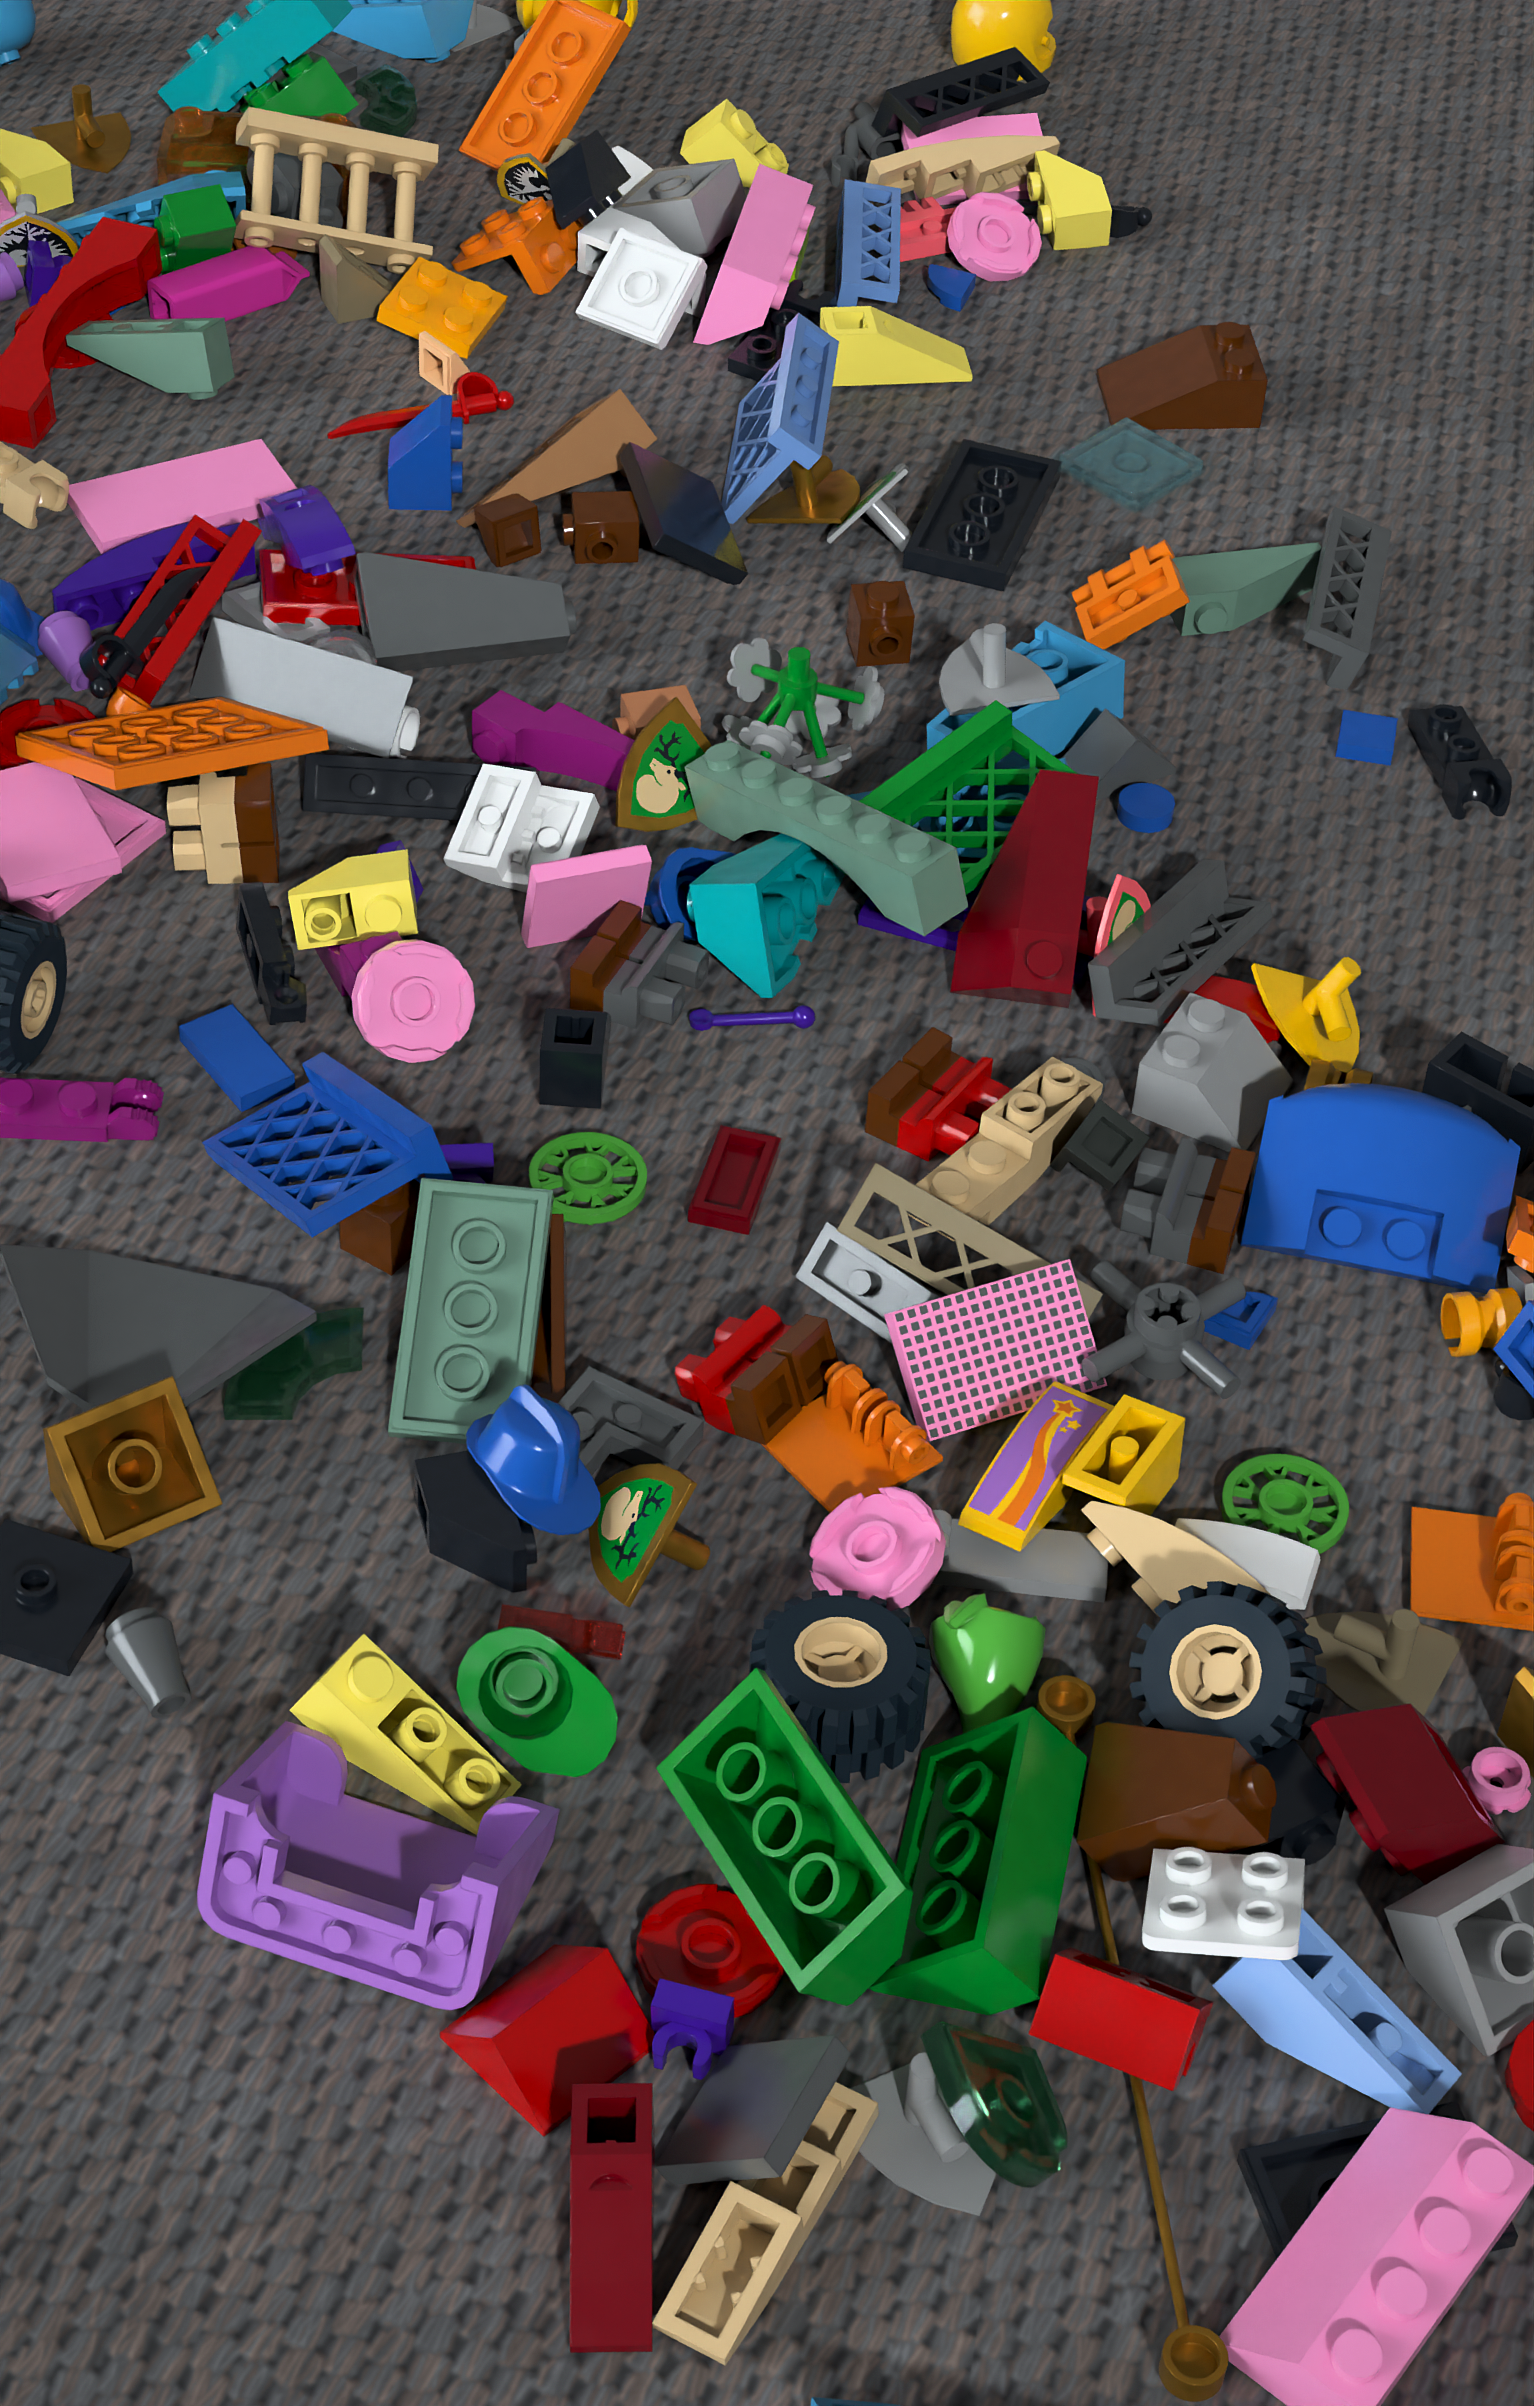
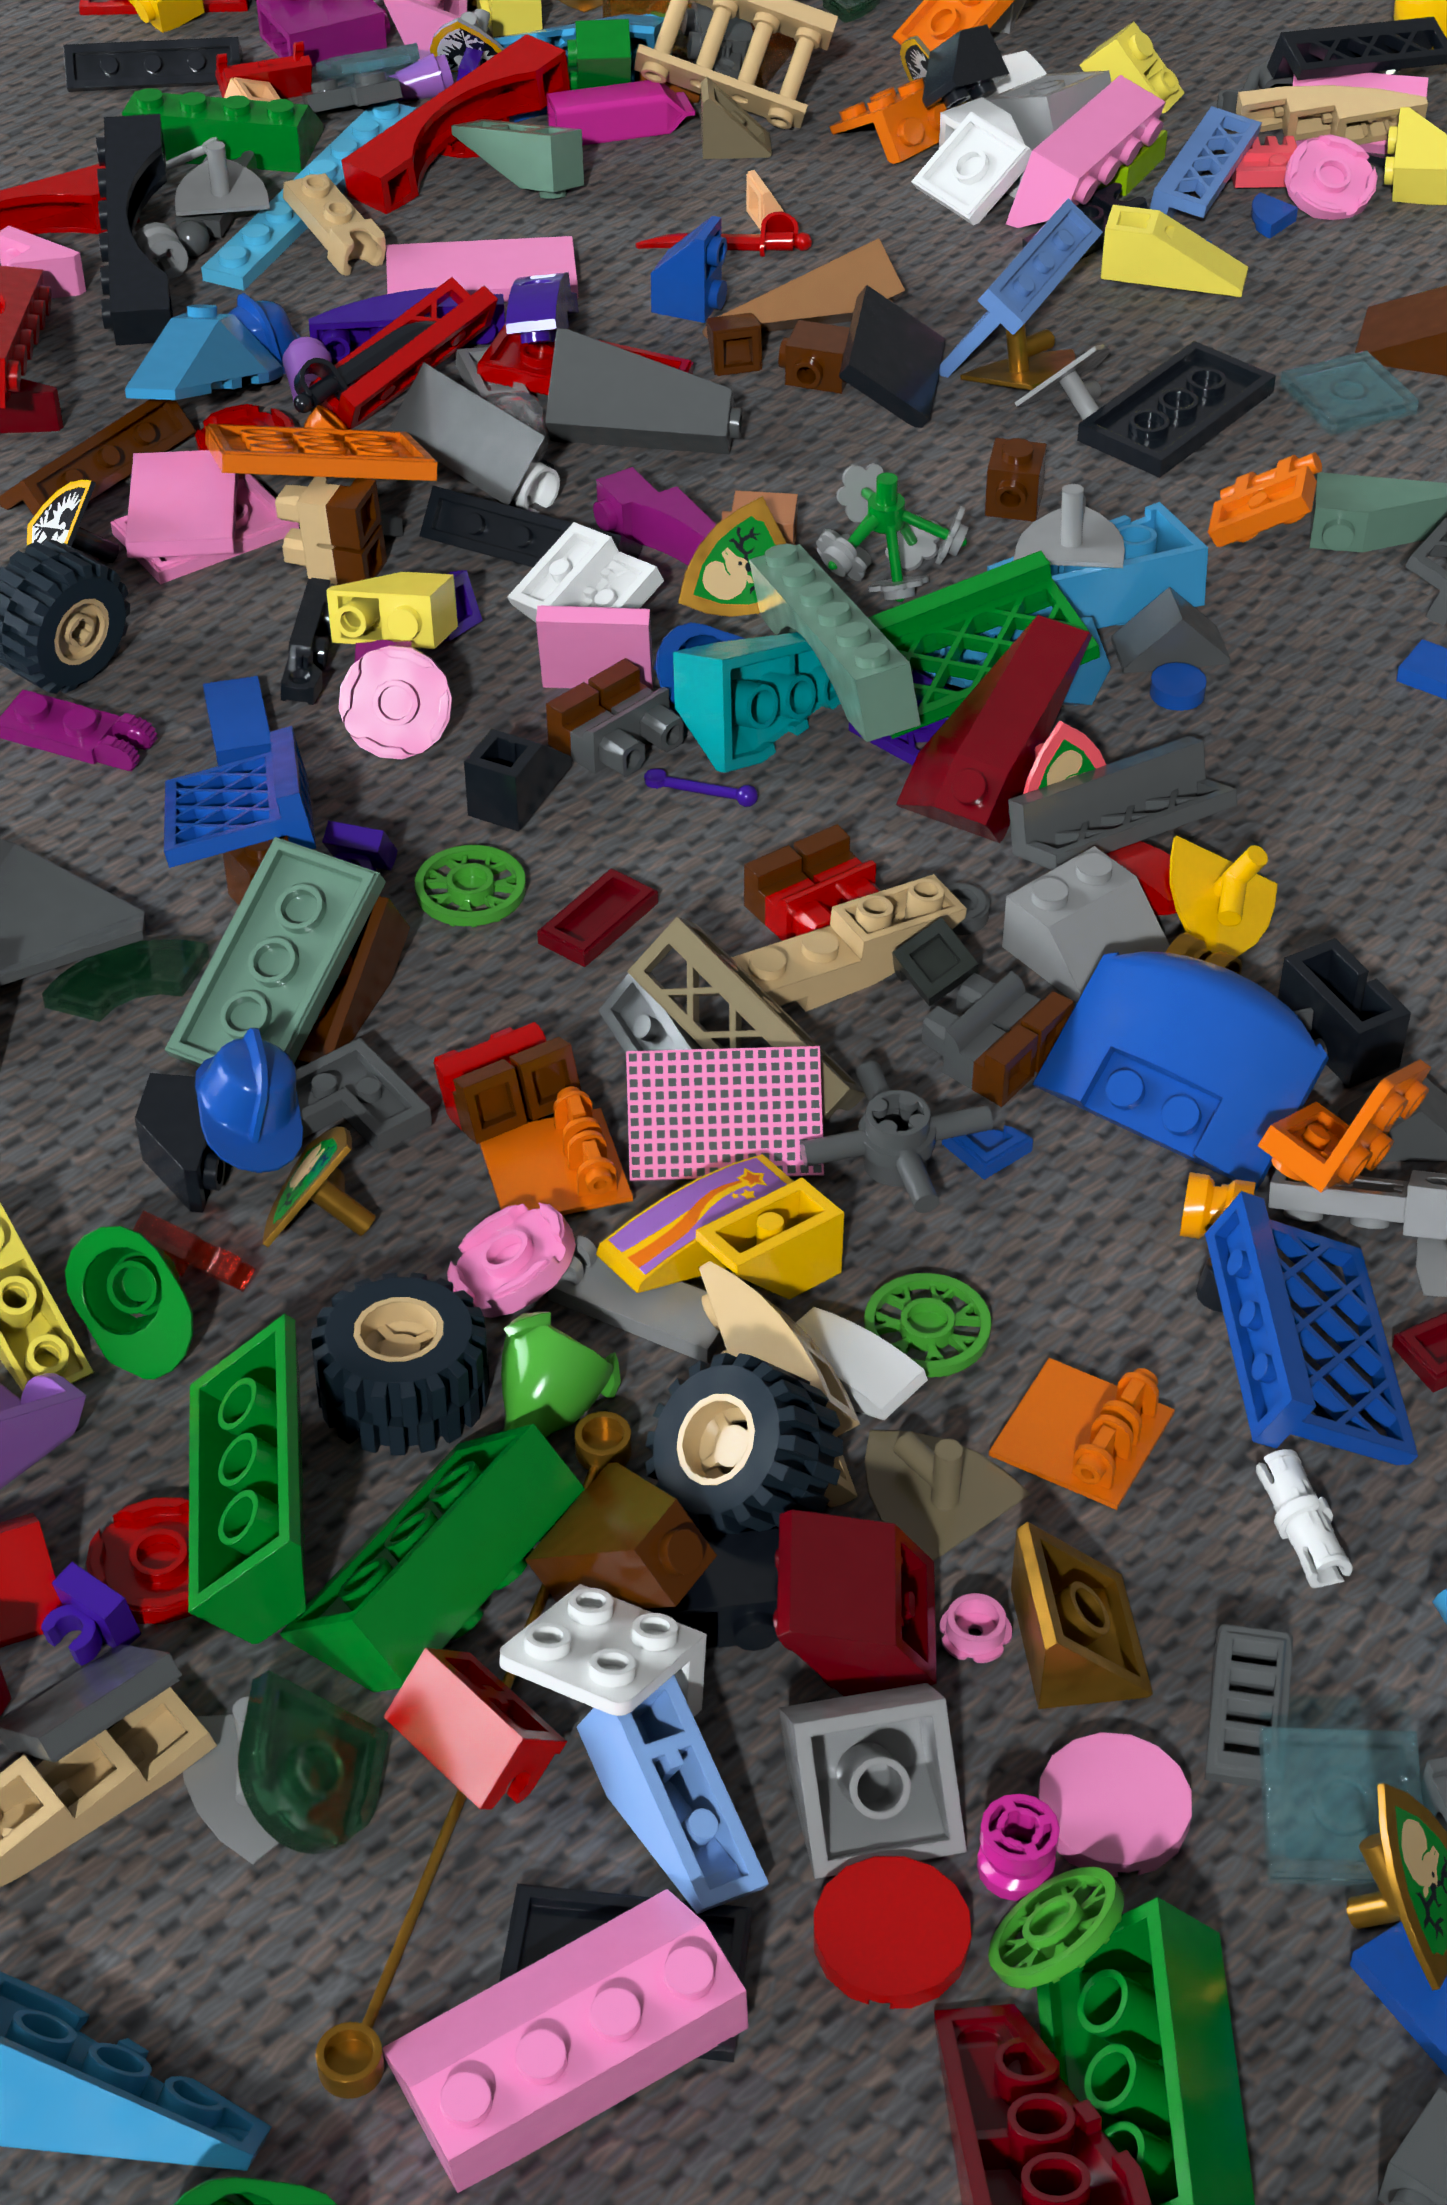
camera: 25 degrees right, 0 degrees up
(443, 305) = (793, 158): light orange plate -> none

